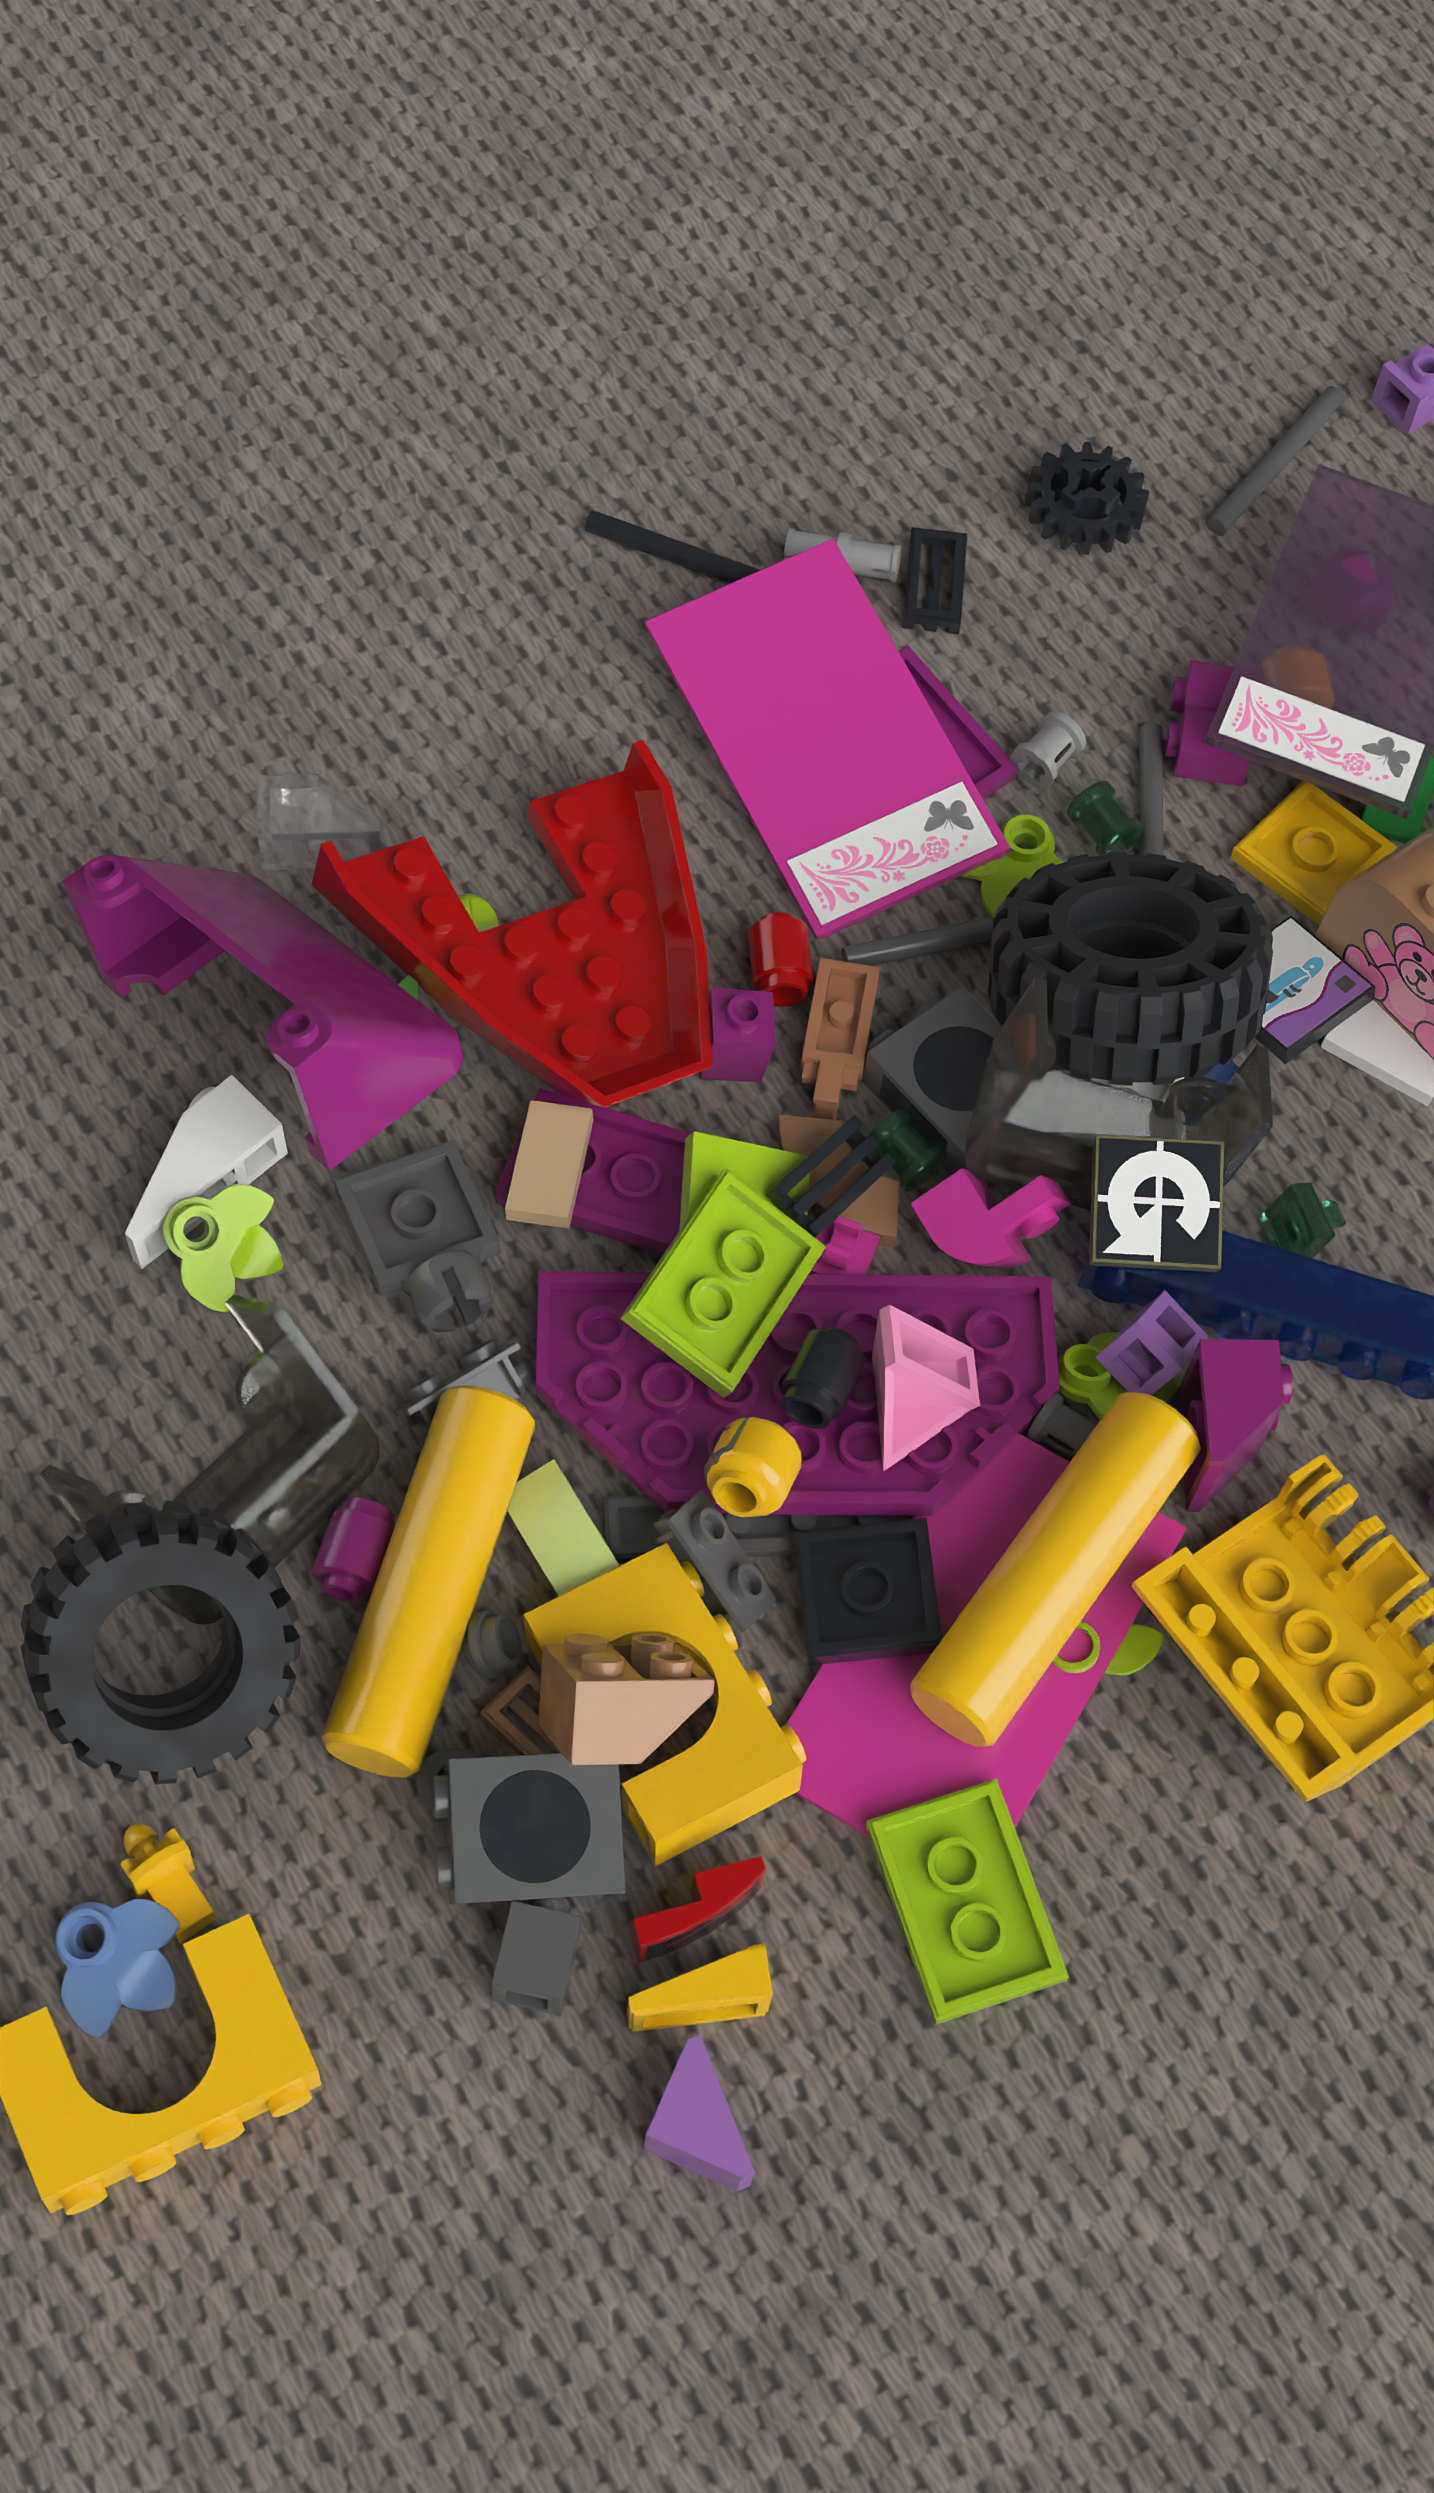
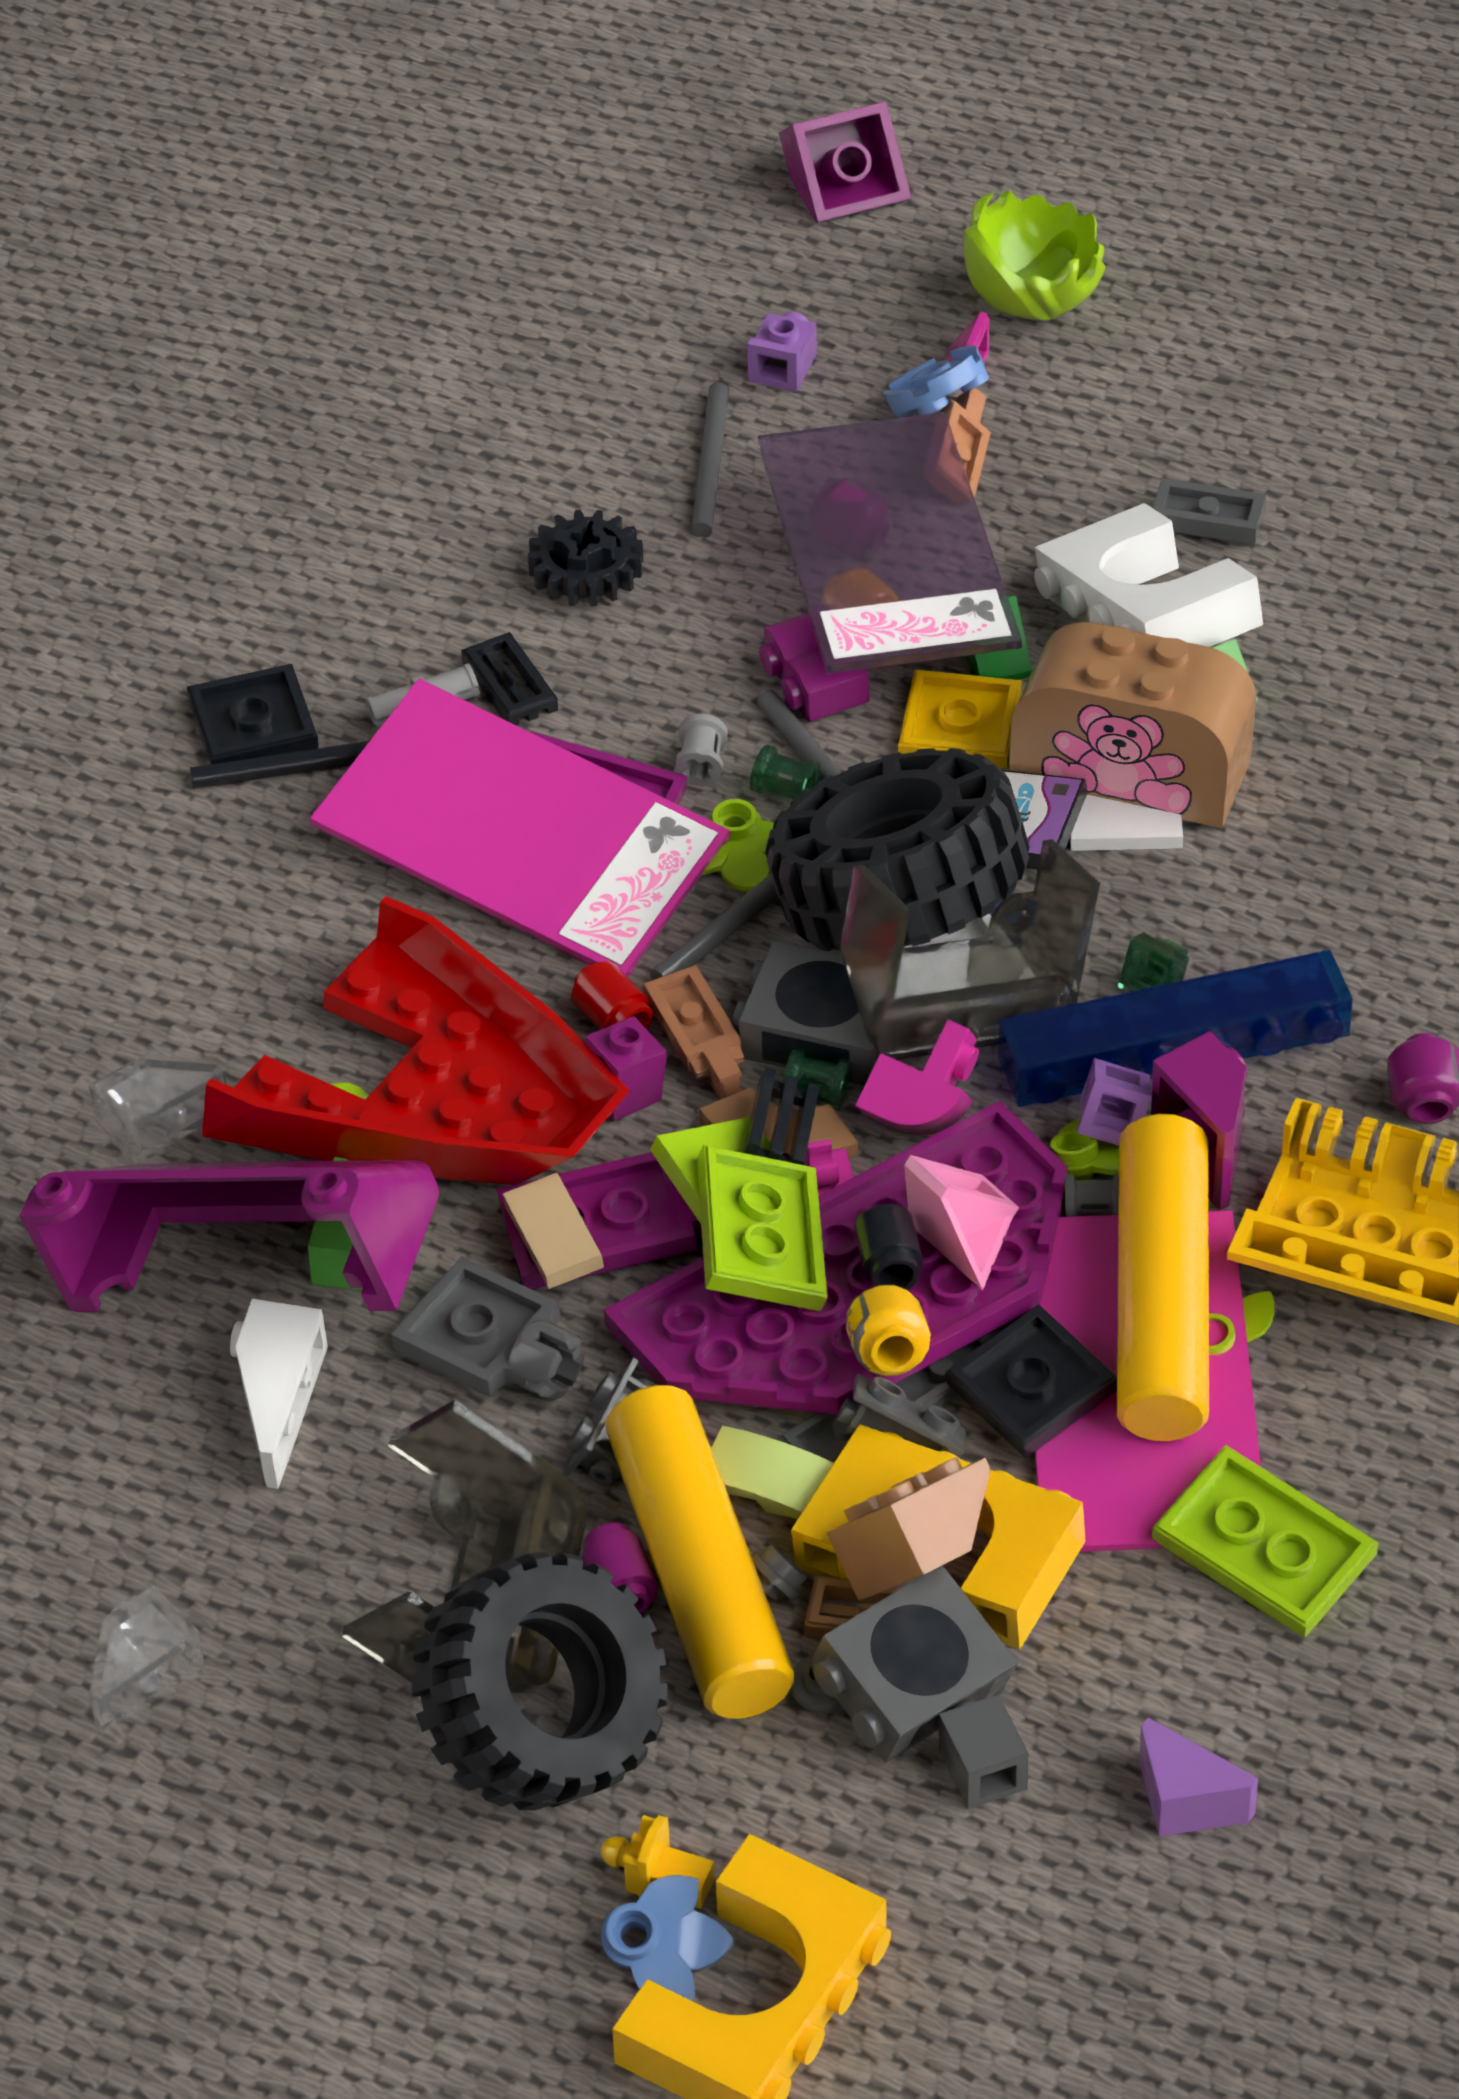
camera: 25 degrees left, 15 degrees down
(229, 1246) = (341, 1421): lime plate -> none
(685, 490) = (252, 715): none -> black tile
(716, 1898) = (1079, 1649): red slope -> none
(716, 1992) = (1137, 1691): yellow slope -> none
(1156, 1203) = (1045, 997): tile -> none

